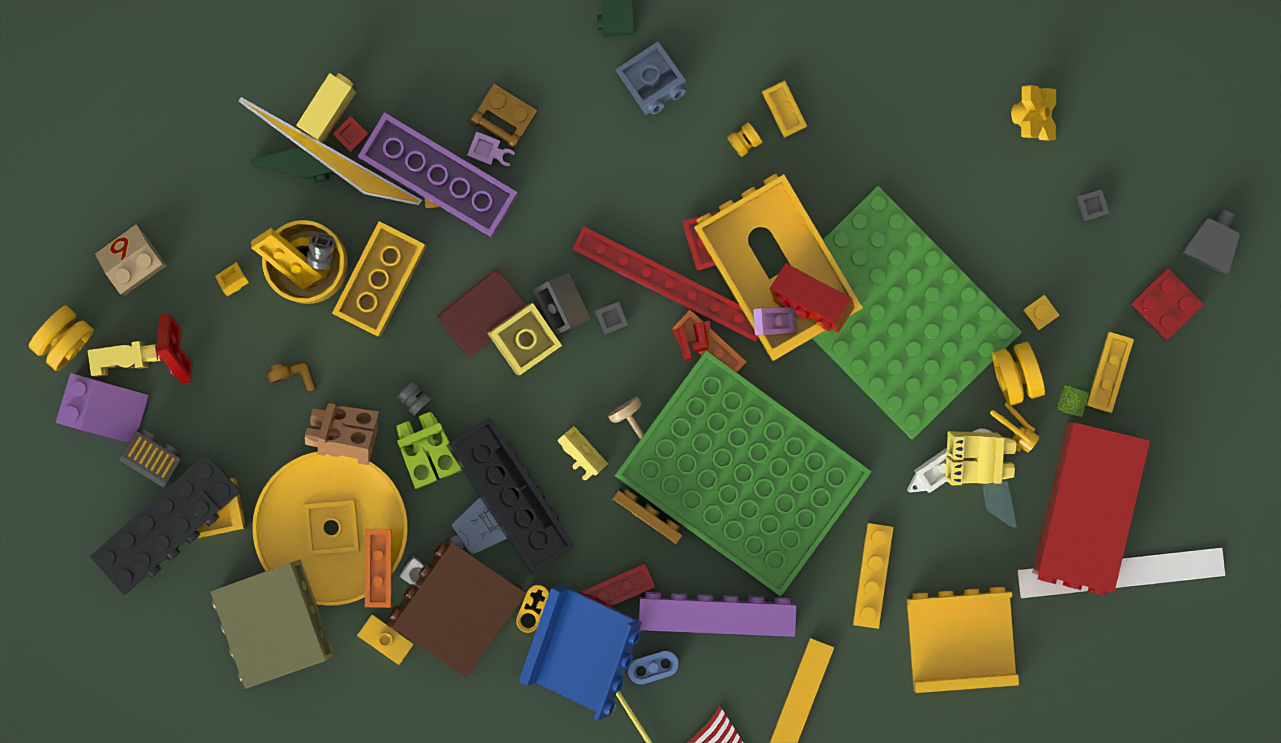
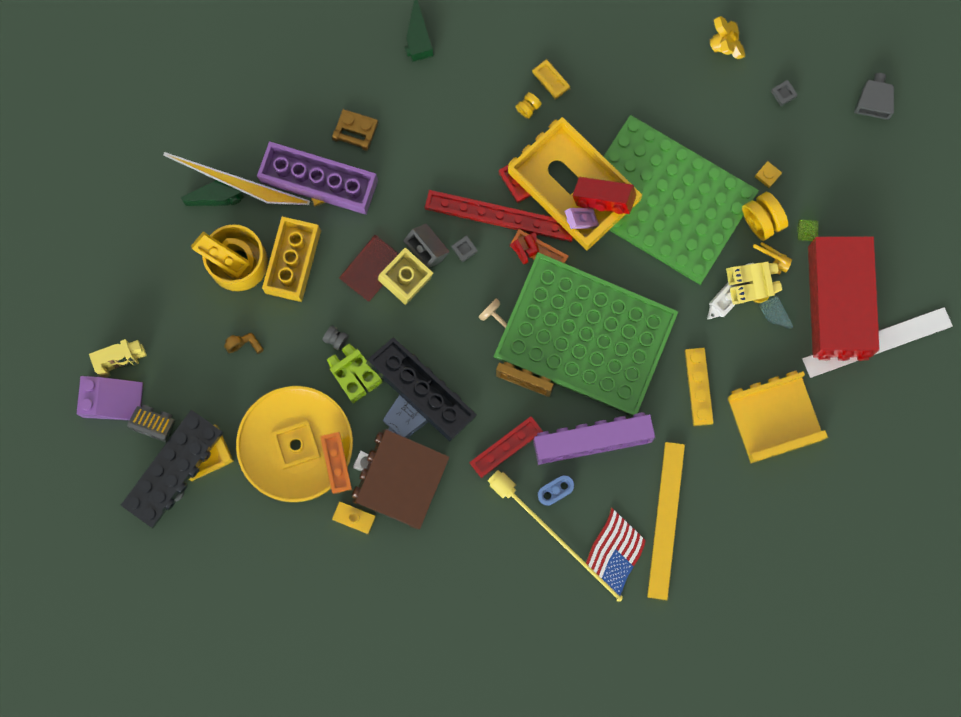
camera: 15 degrees left, 10 degrees down
(61, 338) = (69, 353): yellow wheel -> none
(130, 260) = (110, 290): tan slope -> none
(170, 351) = (149, 342): red plate -> none
(231, 279) = (186, 285): yellow plate -> none
(272, 624) = (266, 523): olive panel -> none
(320, 251) = (243, 243): dark grey wheel -> none
(327, 107) = (228, 147): light yellow brick -> none
(343, 432) = (289, 372): medium nougat hips -> none
(350, 134) = (249, 166): red plate -> none
(486, 150) = (348, 154): lavender plate -> none
(529, 599) = (463, 464): yellow beam -> none
(580, 449) = (460, 343): light yellow plate -> none
(581, 650) = (500, 488): blue panel -> none
(652, 79) = (454, 79): sand blue plate -> none
(1109, 372) = (829, 203): yellow plate -> none
(1166, 304) = (855, 148): red plate -> none

